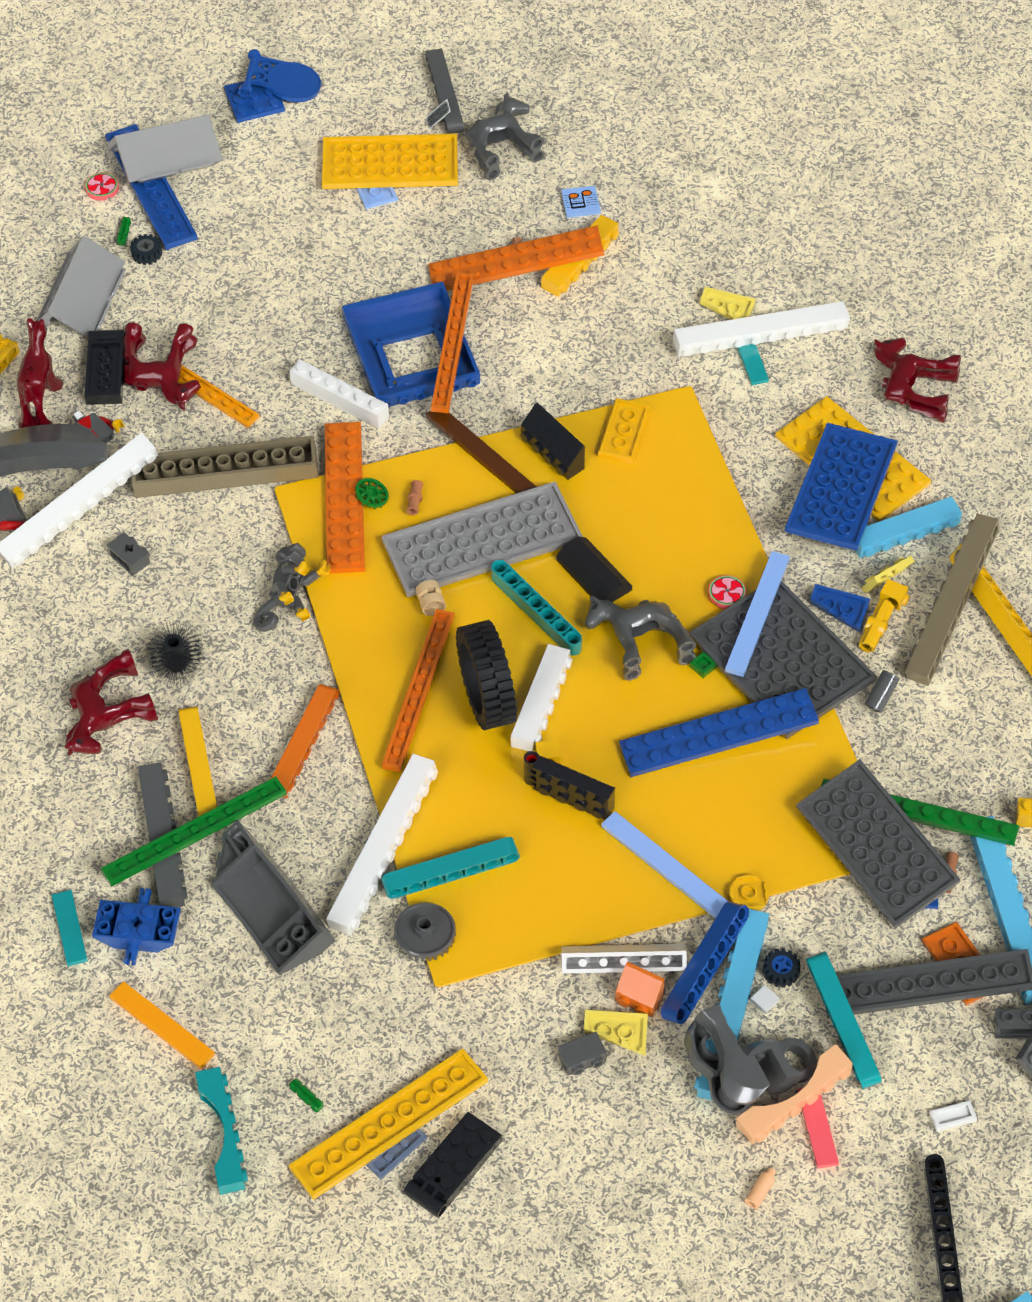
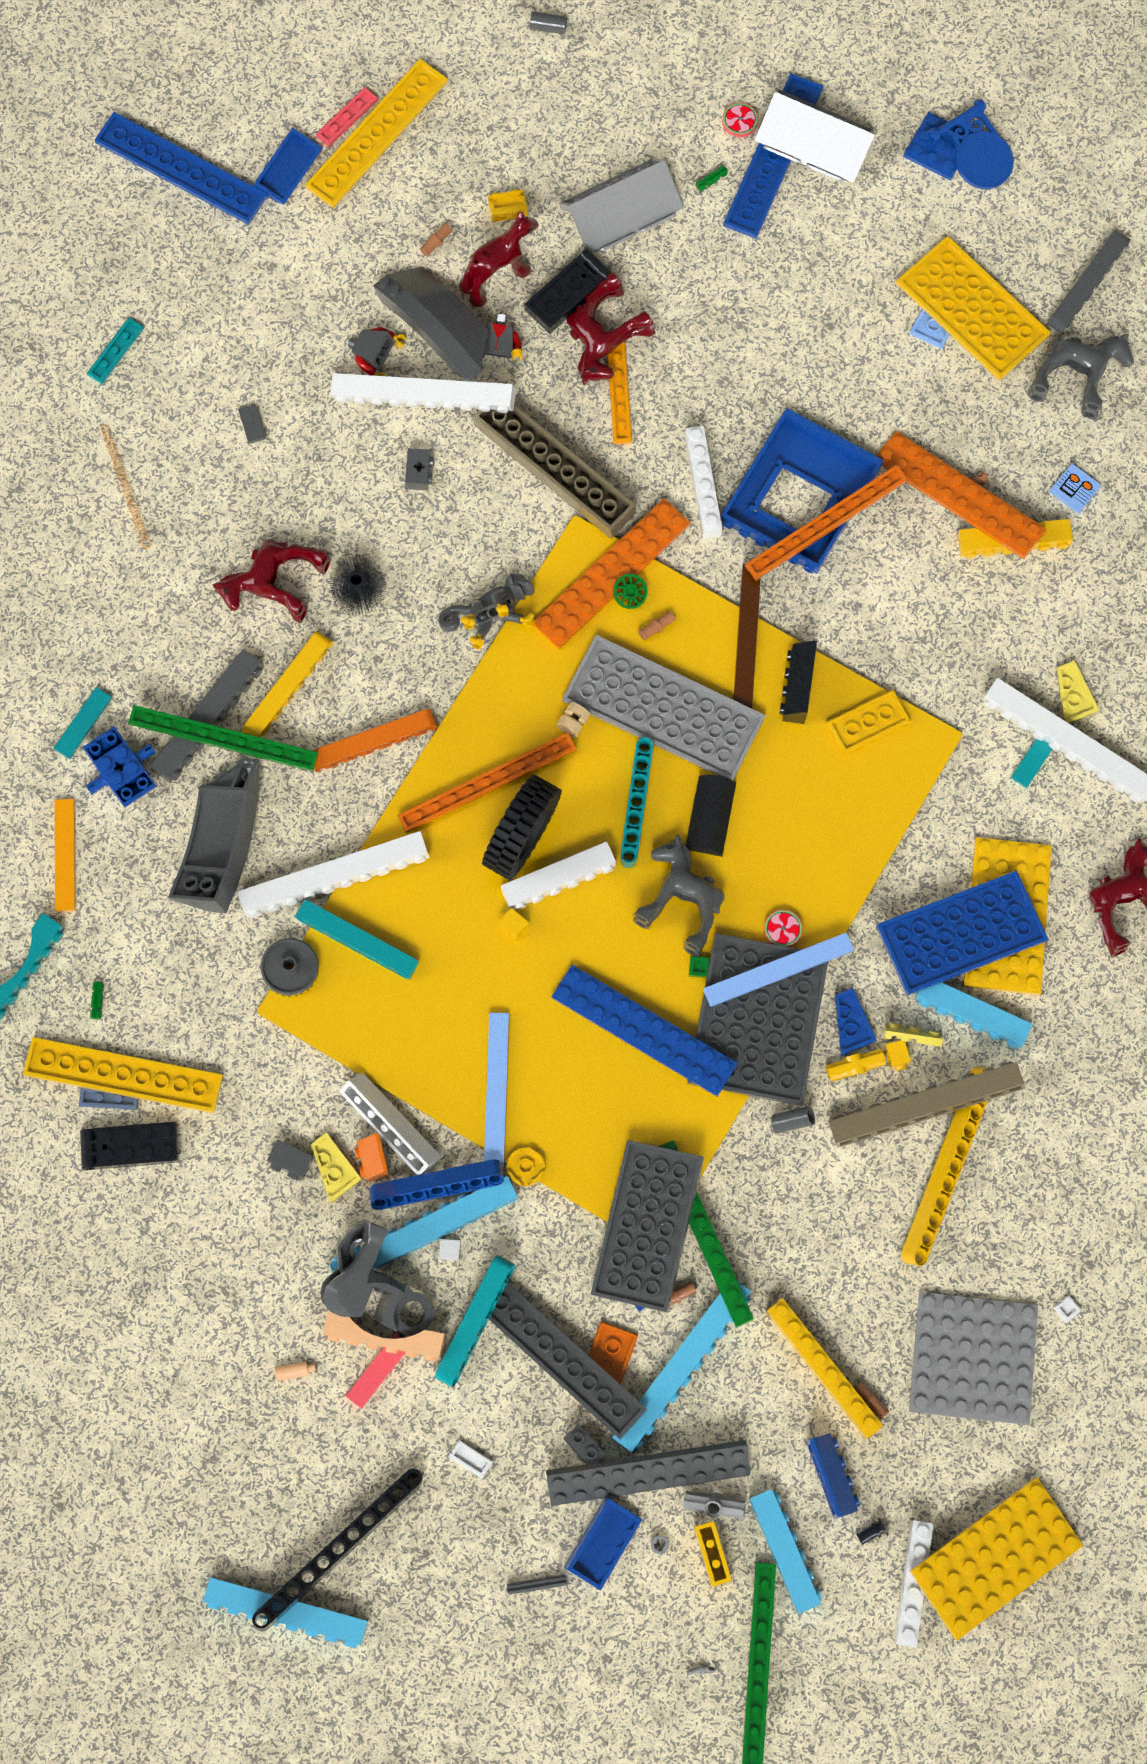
camera: 45 degrees right, 20 degrees up
(146, 249) = (708, 219): black wheel -> none
(438, 114) = (1056, 300): sticker -> none
(569, 786) = (494, 965): black hinge -> none
(781, 960) = (484, 1234): black wheel -> none

